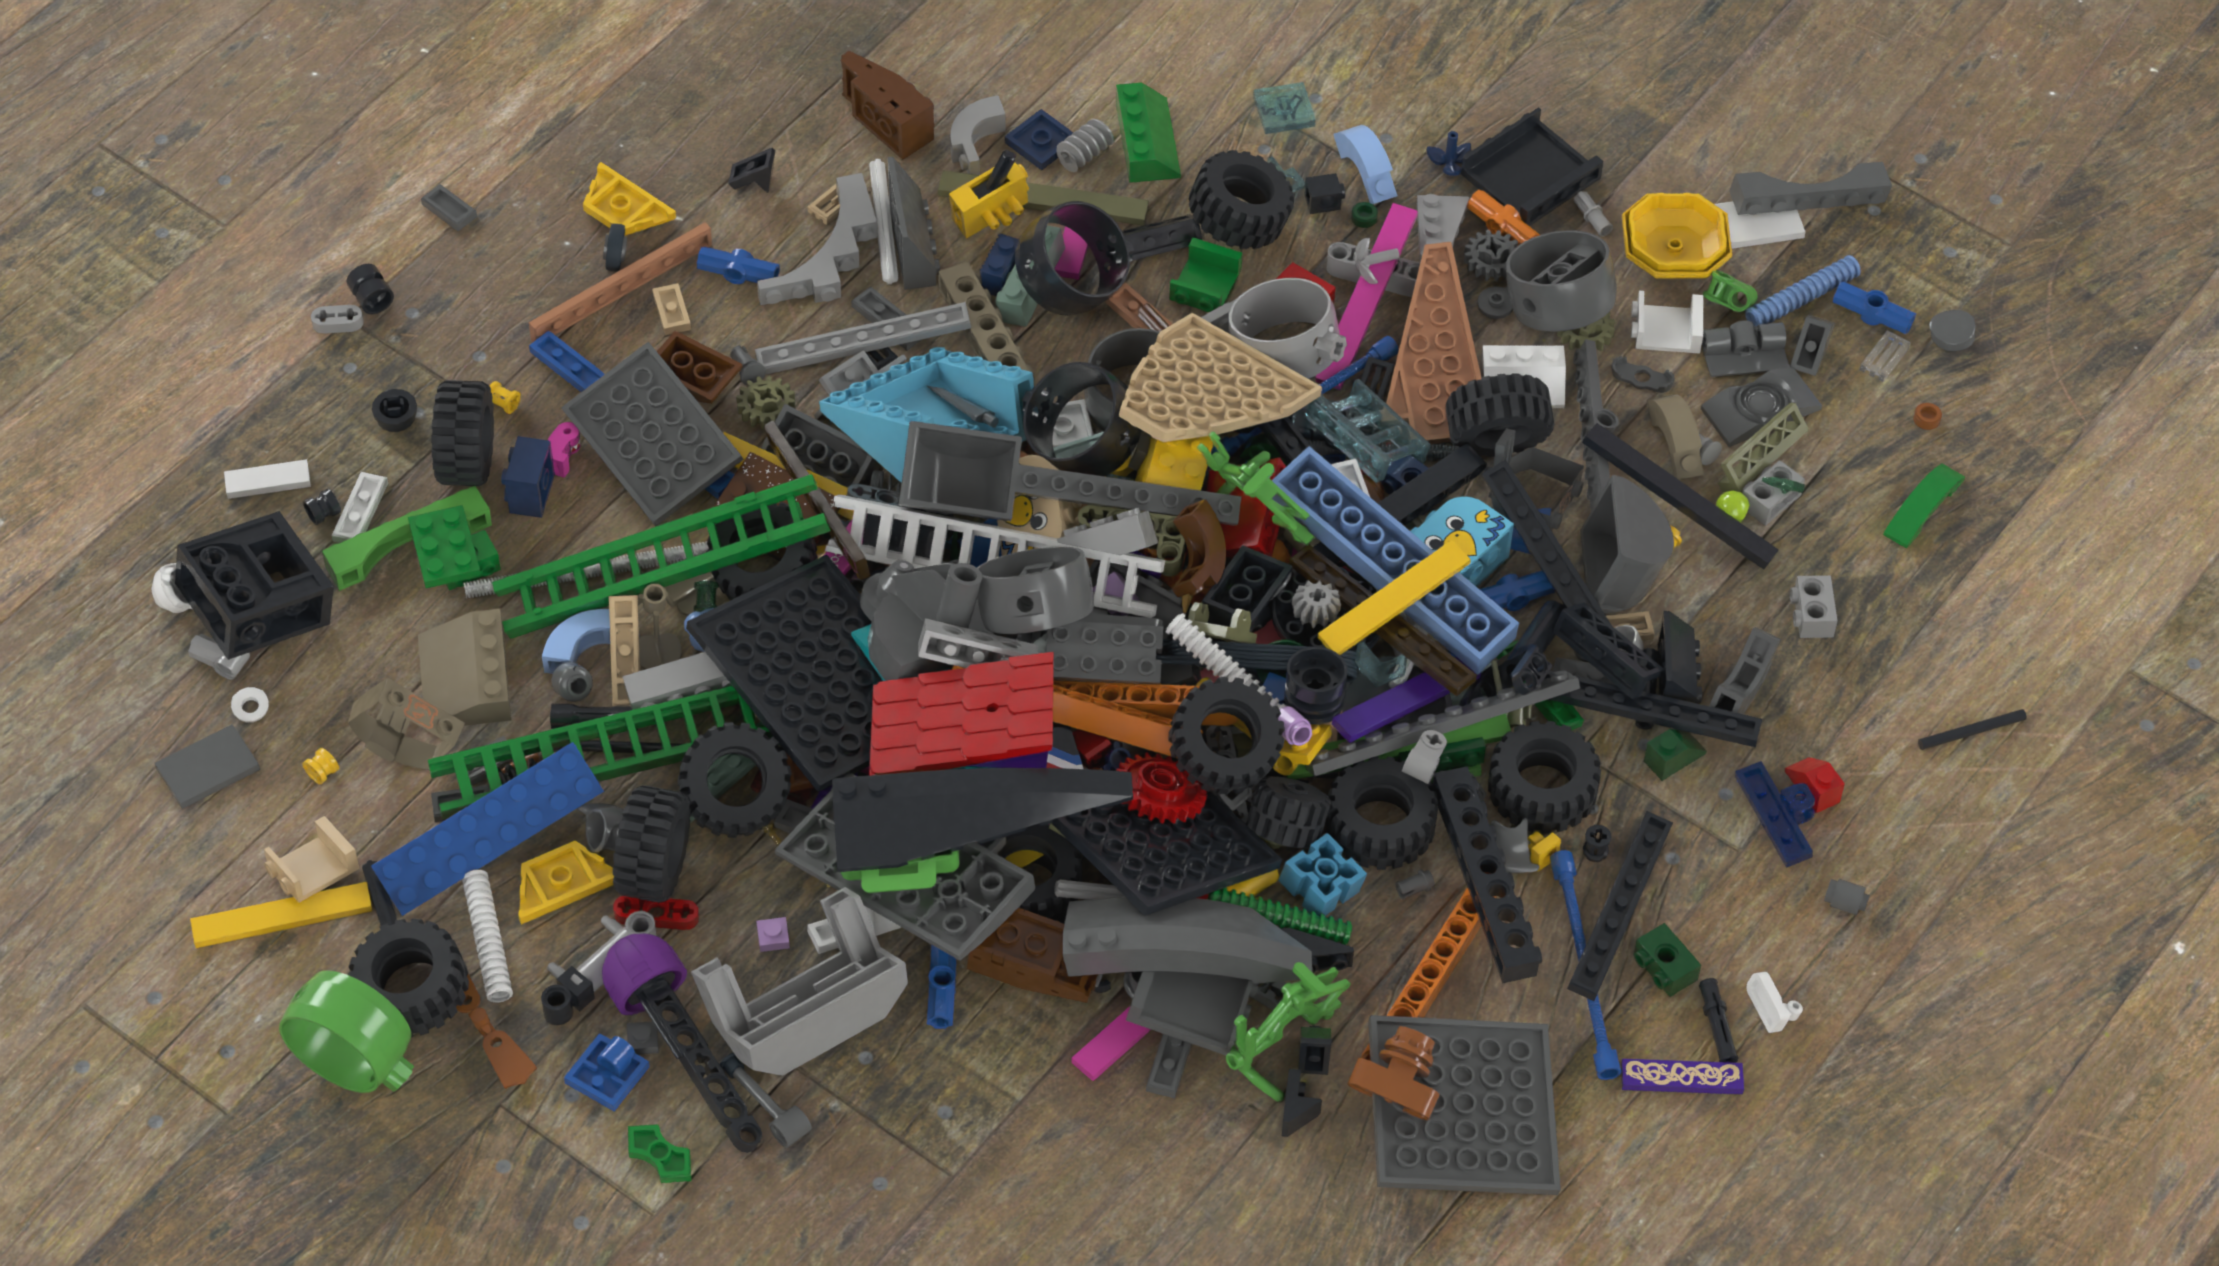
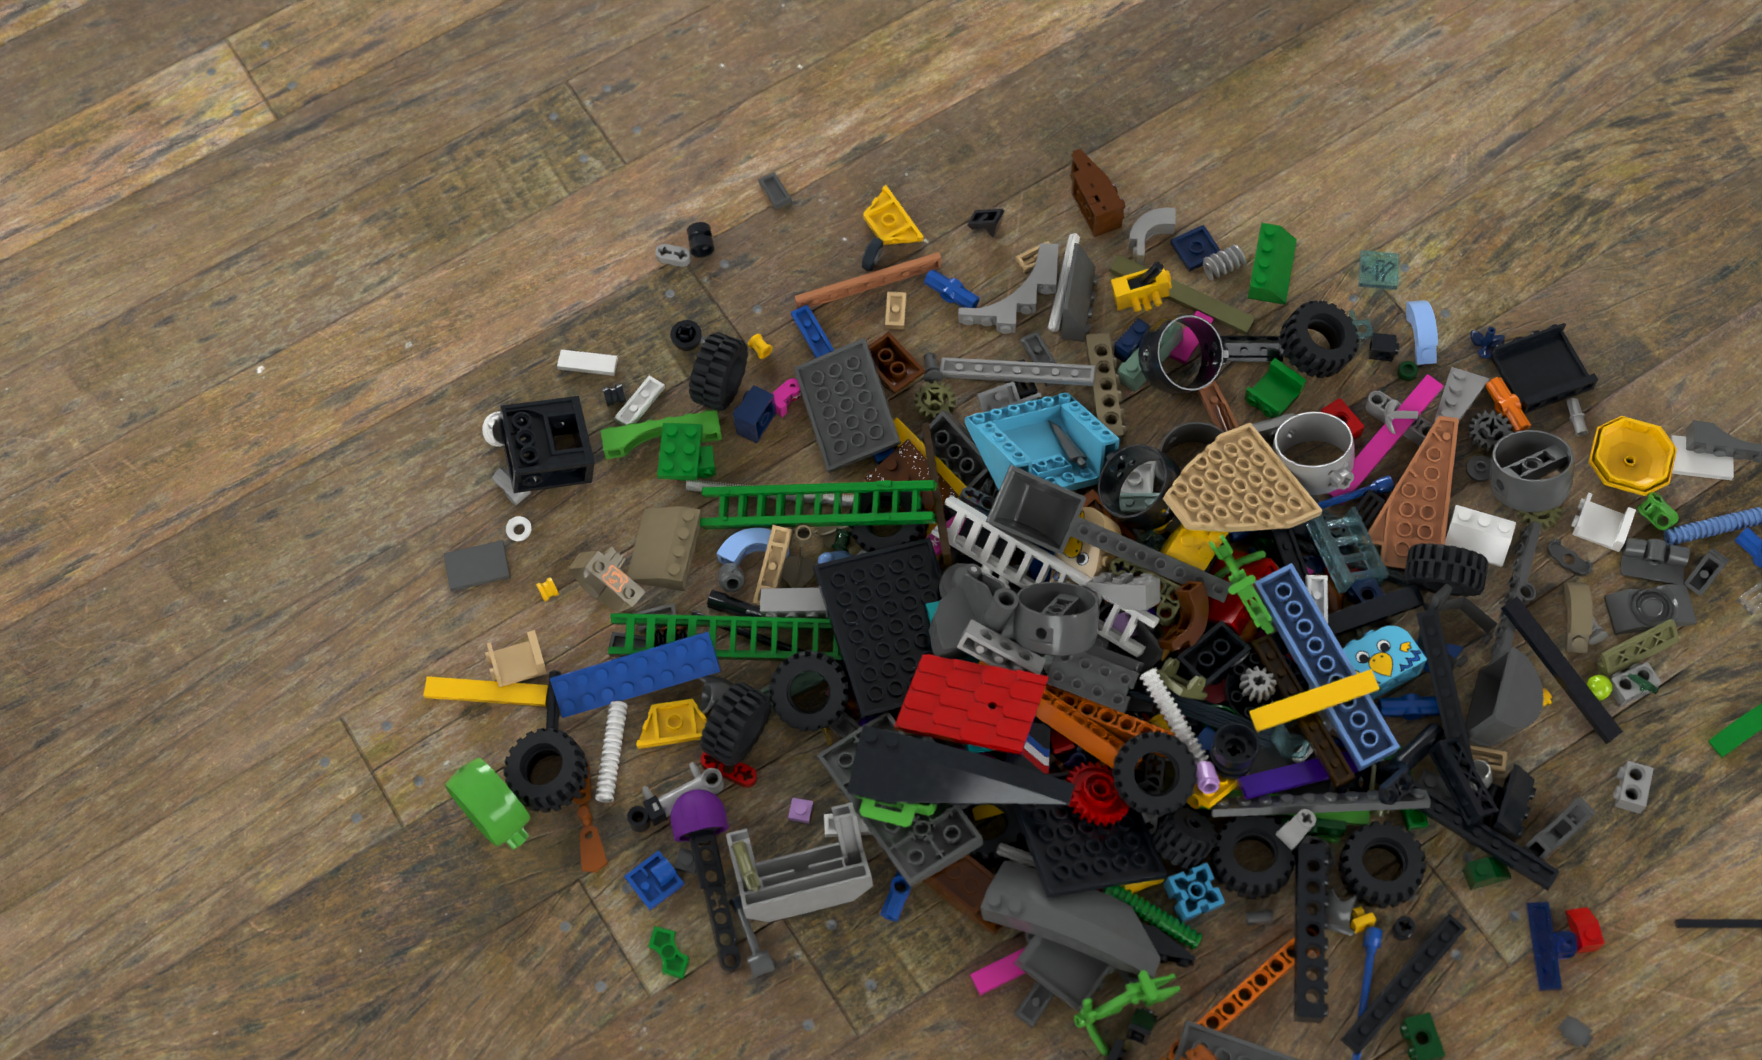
camera: 25 degrees right, 10 degrees up
(734, 997) = (748, 872): none -> olive piece

